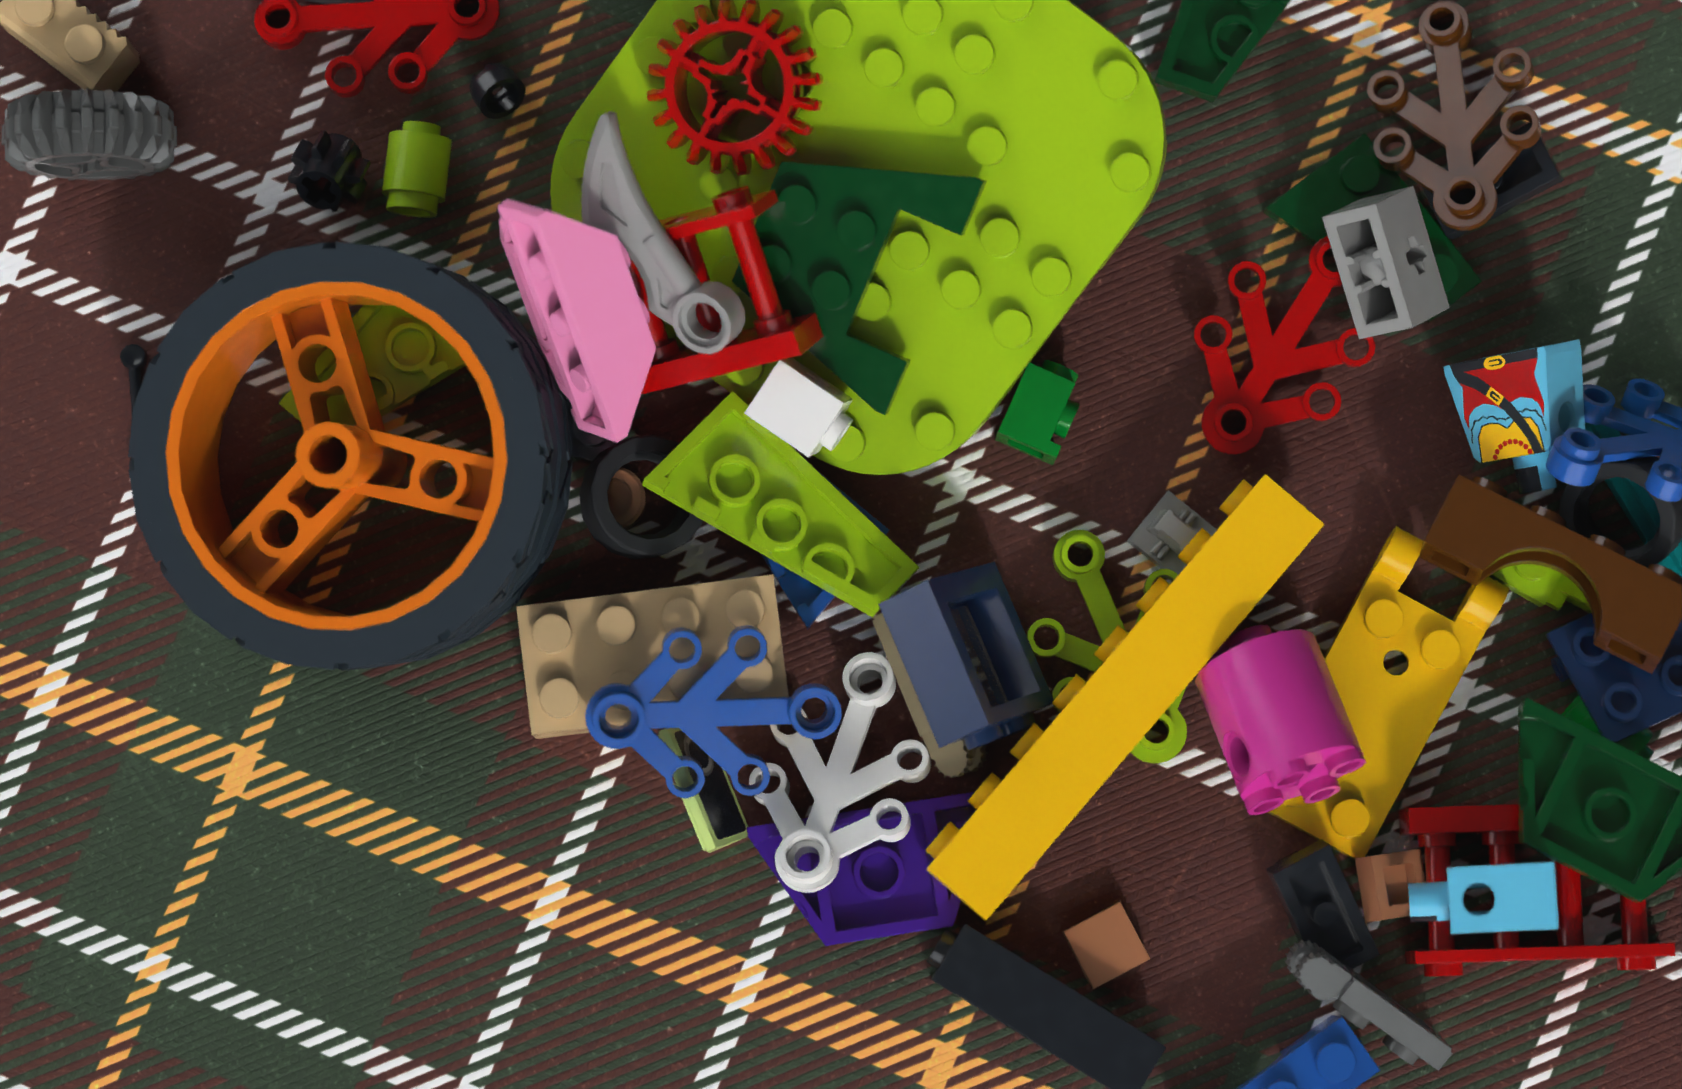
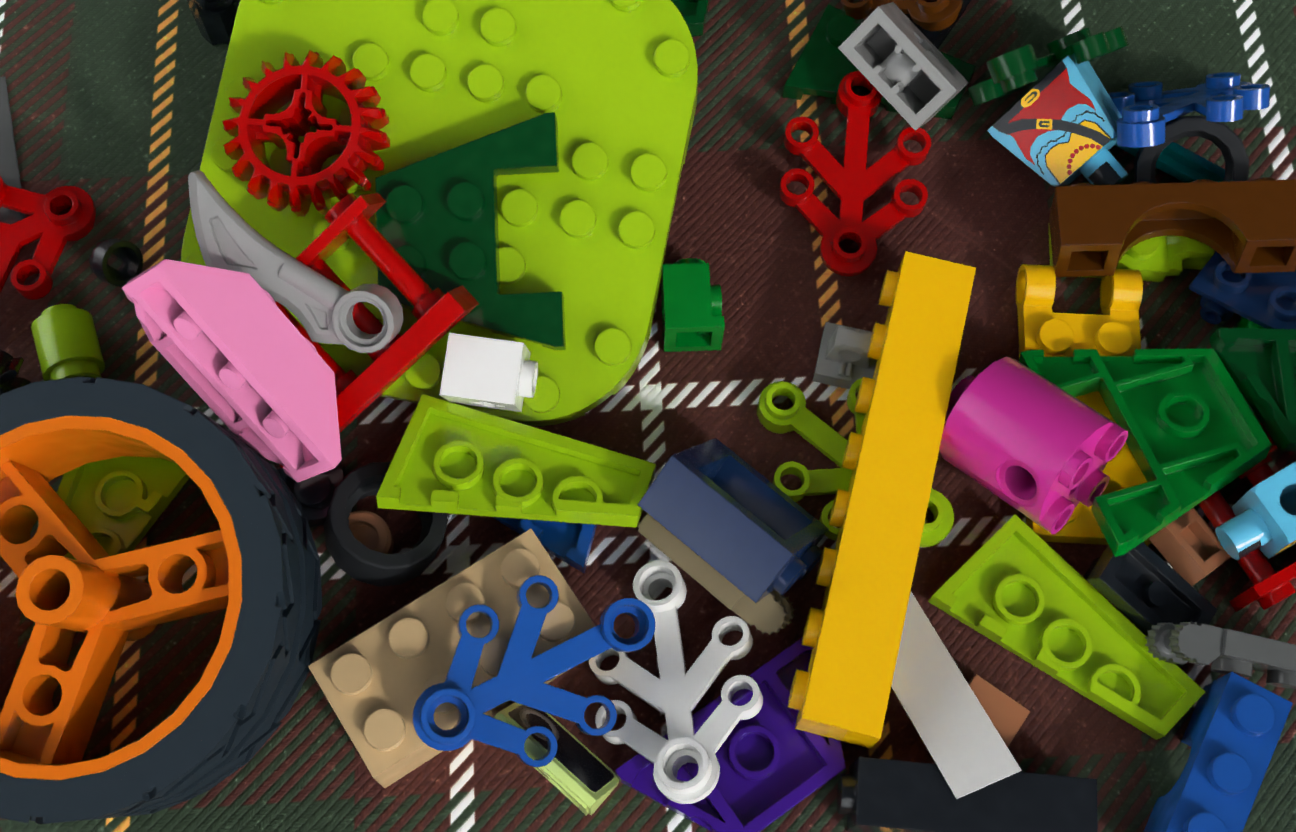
camera: 25 degrees left, 15 degrees down
(1070, 912) = (947, 710): none -> white sticker
(1217, 880) = (1059, 623): none -> lime wing
(1438, 766) = (1181, 424): none -> green wing
(1590, 313) = (1018, 67): none -> dark green plant

